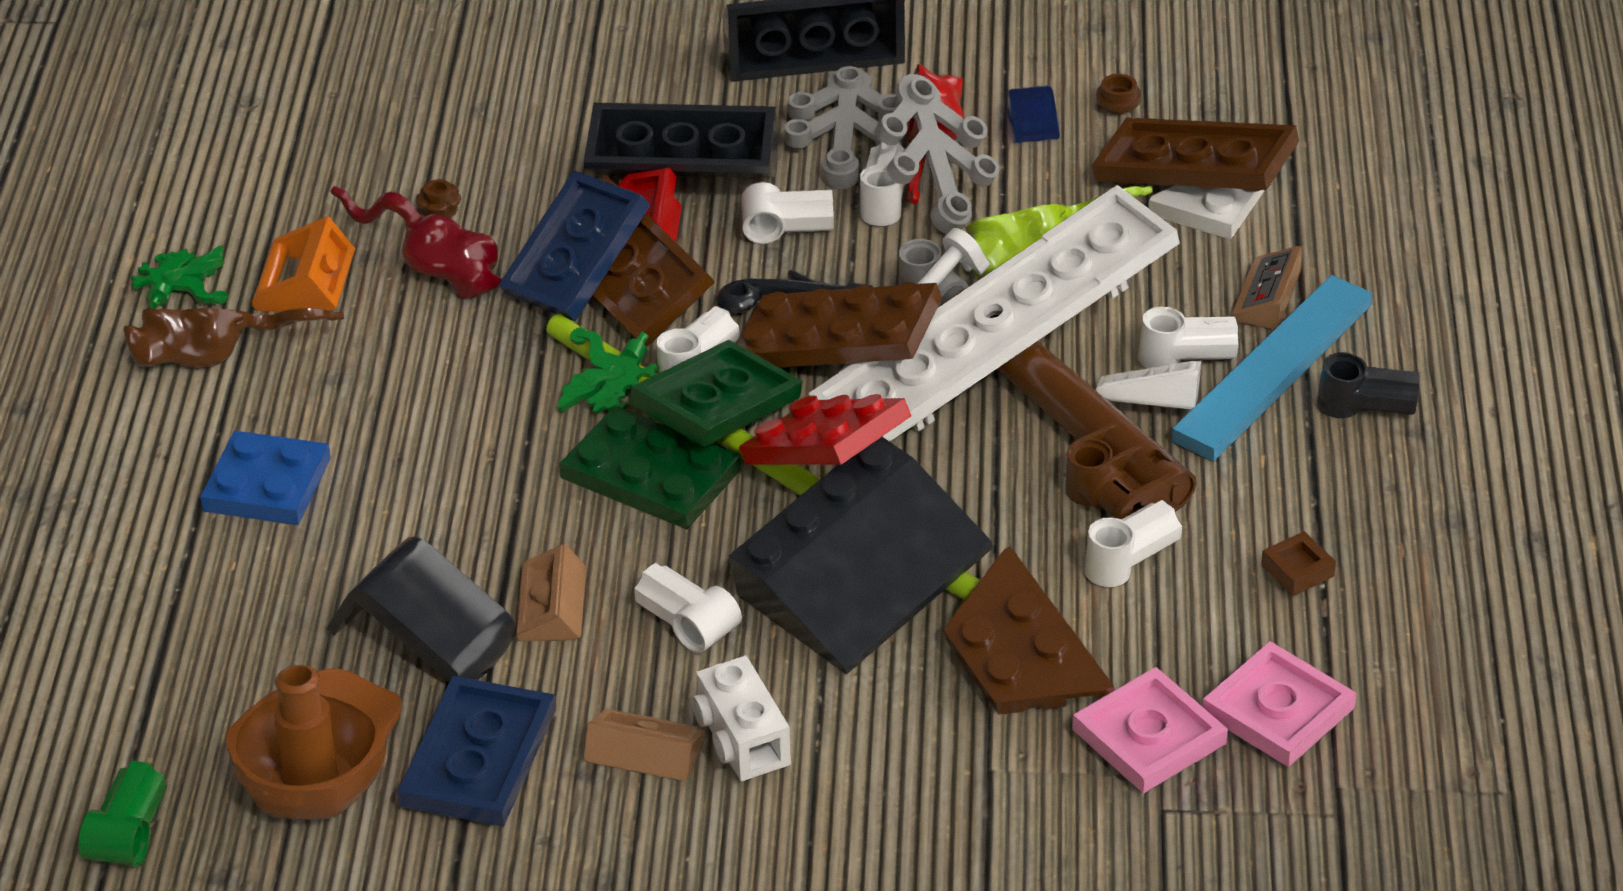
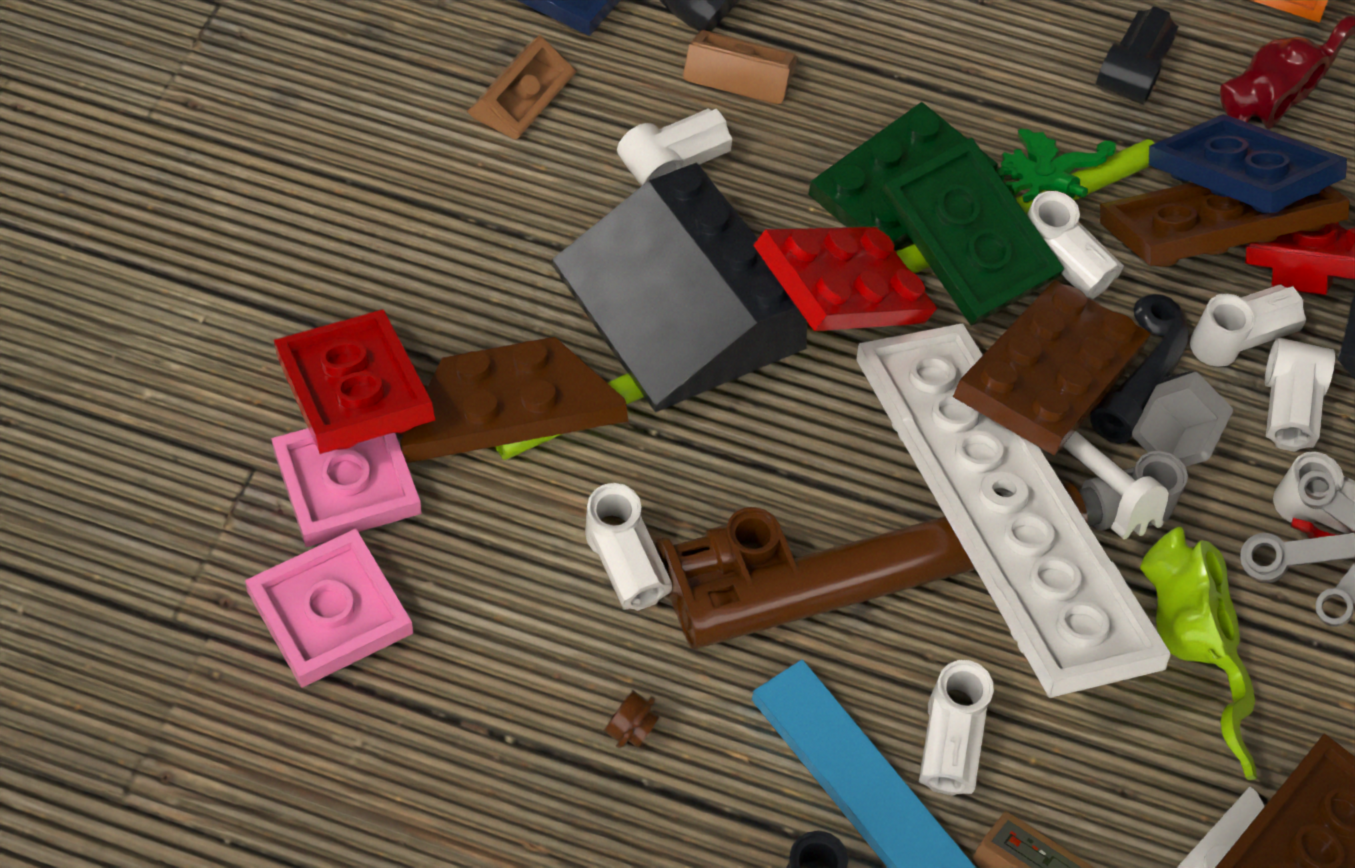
camera: 100 degrees right, 15 degrees up
(463, 341) = (1137, 61): none -> black piece
(735, 244) = (1245, 322): none -> white piece
(742, 718) = (496, 142): white brick -> none
(854, 257) = (1183, 419): none -> light grey panel
(1063, 733) = (353, 381): none -> red plate
(1159, 386) = (850, 683): white slope -> none
(1271, 518) = (632, 720): none -> reddish brown plate
(1298, 563) = (531, 707): reddish brown plate -> none

